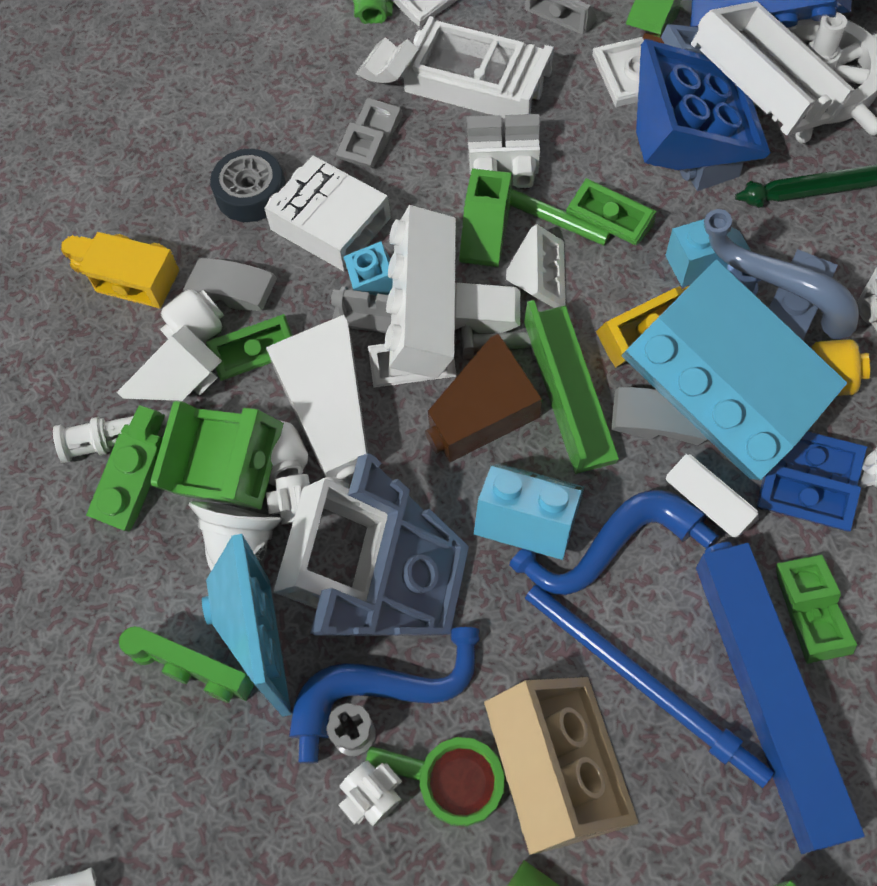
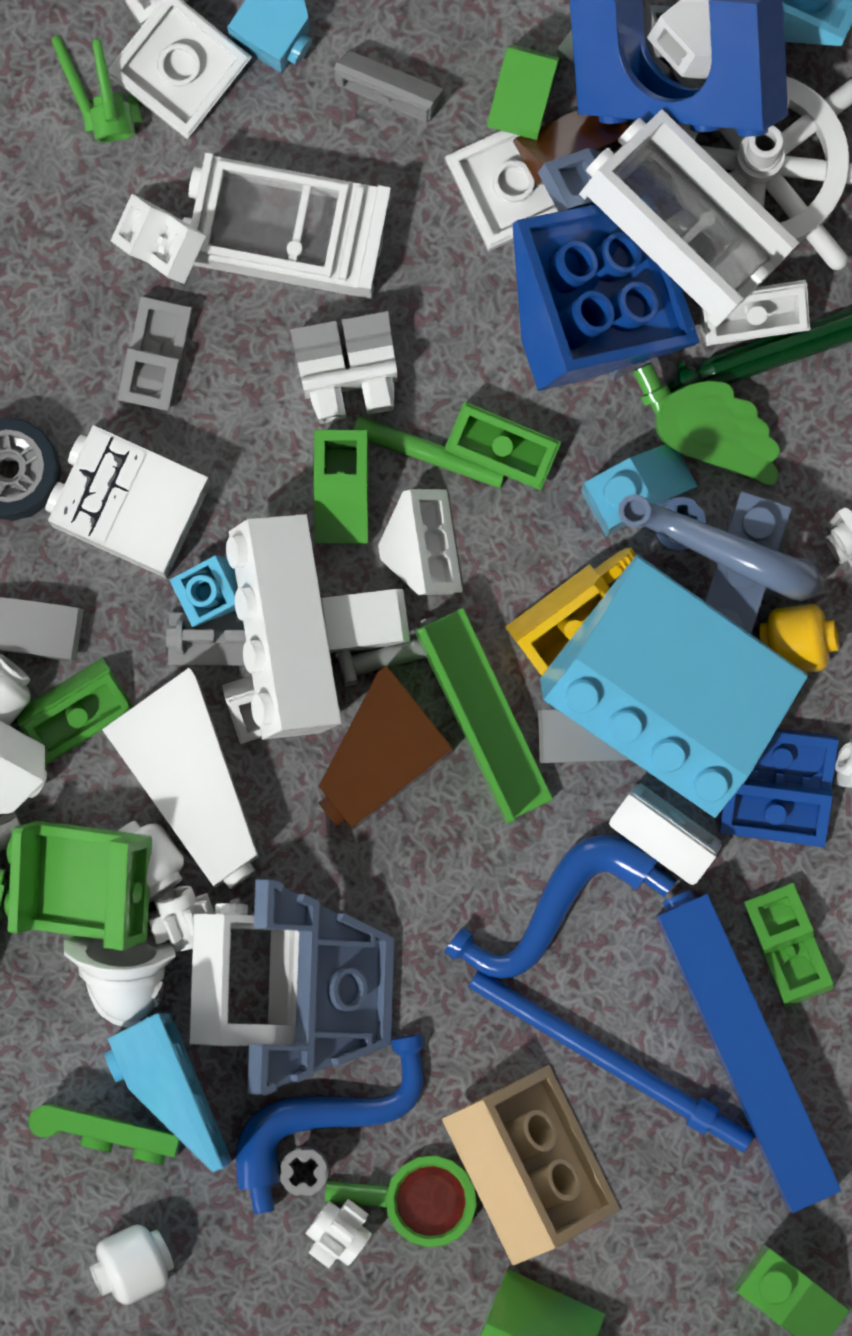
camera: 15 degrees left, 20 degrees up
(176, 788) = (132, 1264): none -> white head
(527, 510) = (458, 882): medium azure slope -> none
(769, 216) = (711, 425): none -> bright green animal
(812, 149) = (764, 313): none -> white slope

